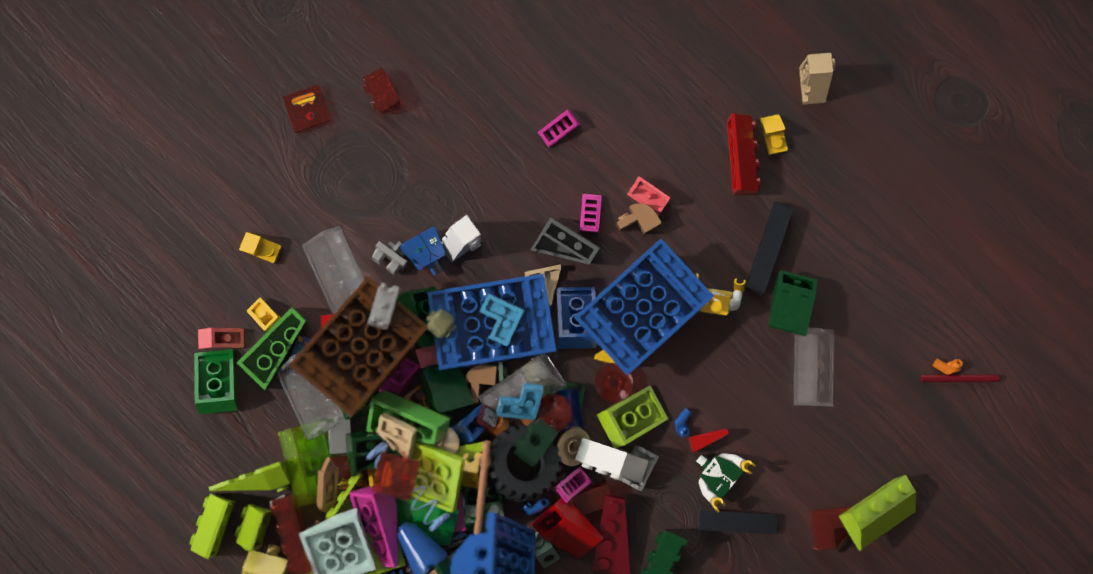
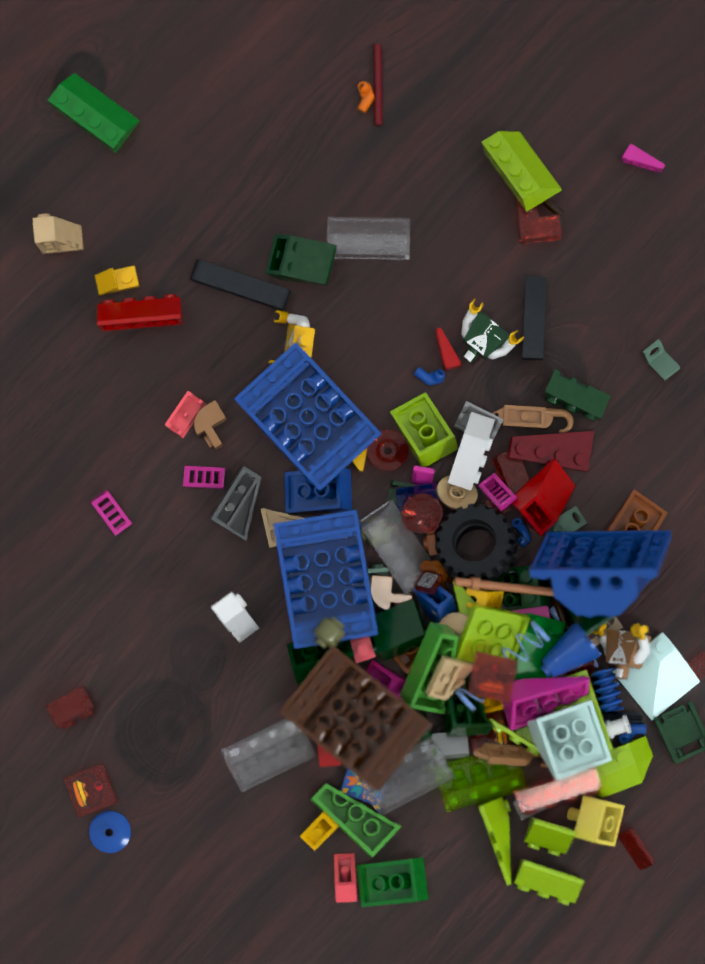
camera: 85 degrees left, 0 degrees up
(260, 247) = (244, 837): yellow slope -> none
(271, 135) = (120, 827): none -> blue dish
(383, 251) = (248, 701): light grey hips -> none
(383, 306) = (312, 692): light grey hinge -> none
(425, 251) = (247, 655): blue torso -> none
(506, 316) = (321, 561): dark azure plate -> none
(523, 407) = (415, 542): dark azure plate -> none
(544, 435) = (447, 520): clear green brick -> none
(589, 414) = (422, 475): none -> dark pink slope
(643, 519) = (533, 417): none -> medium nougat plate
(932, 113) = (93, 112): none -> green slope

